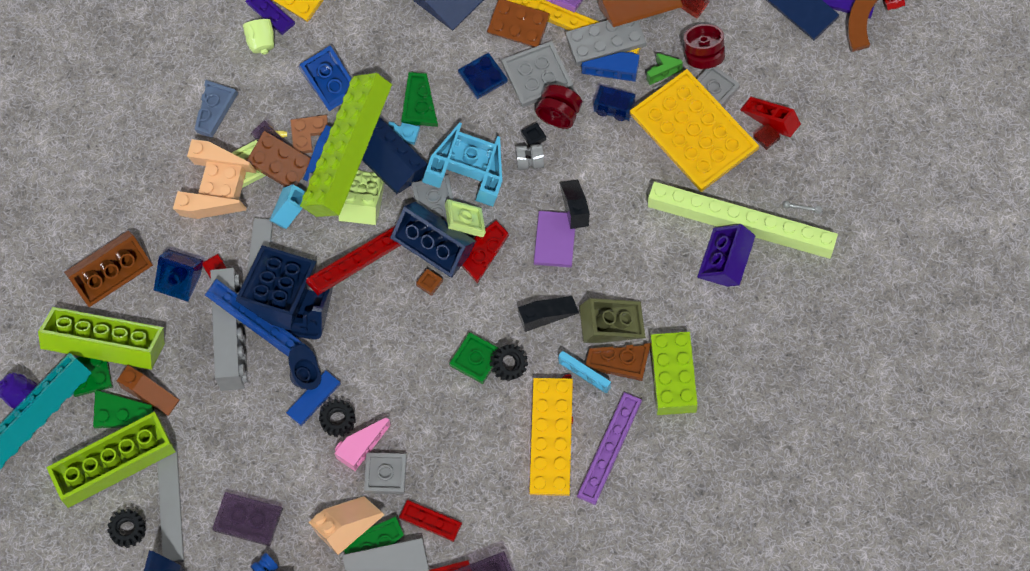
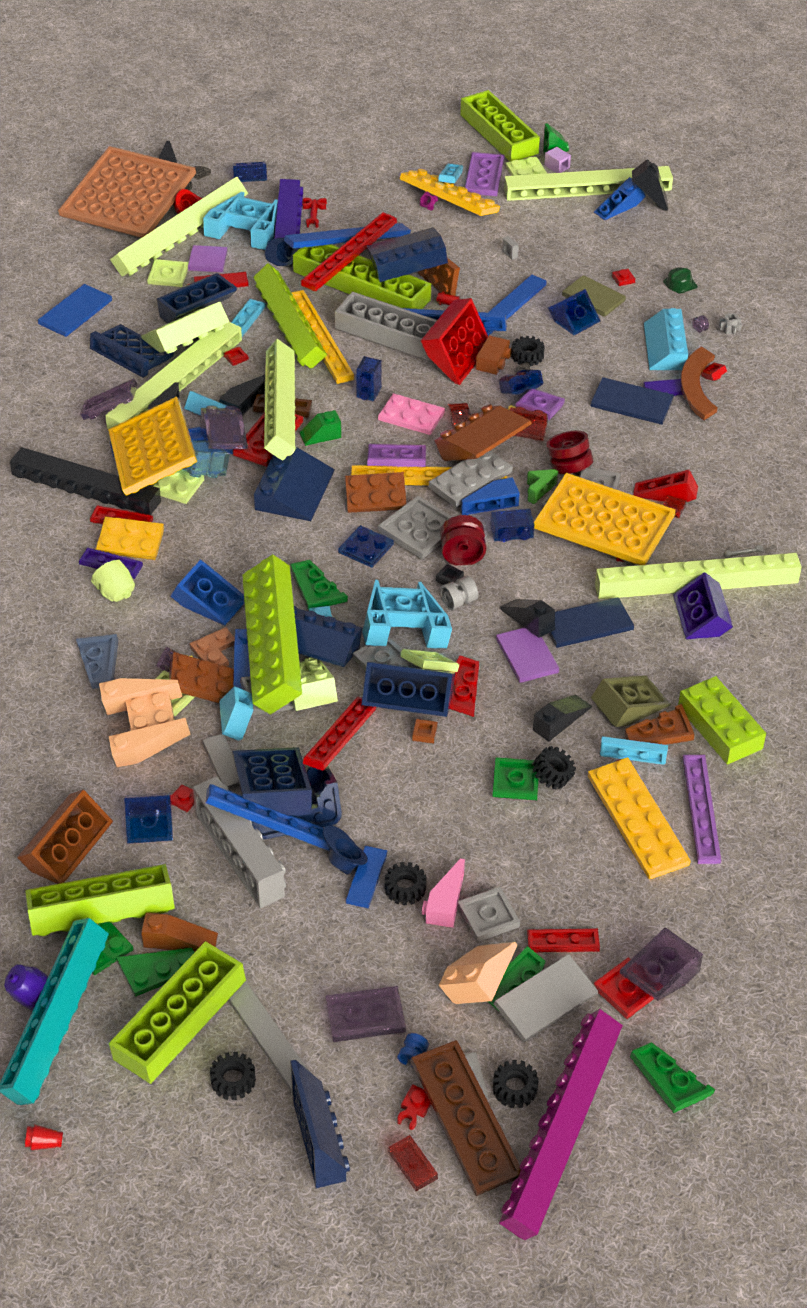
camera: 30 degrees left, 20 degrees down
(624, 228) = (590, 622): none -> dark blue tile

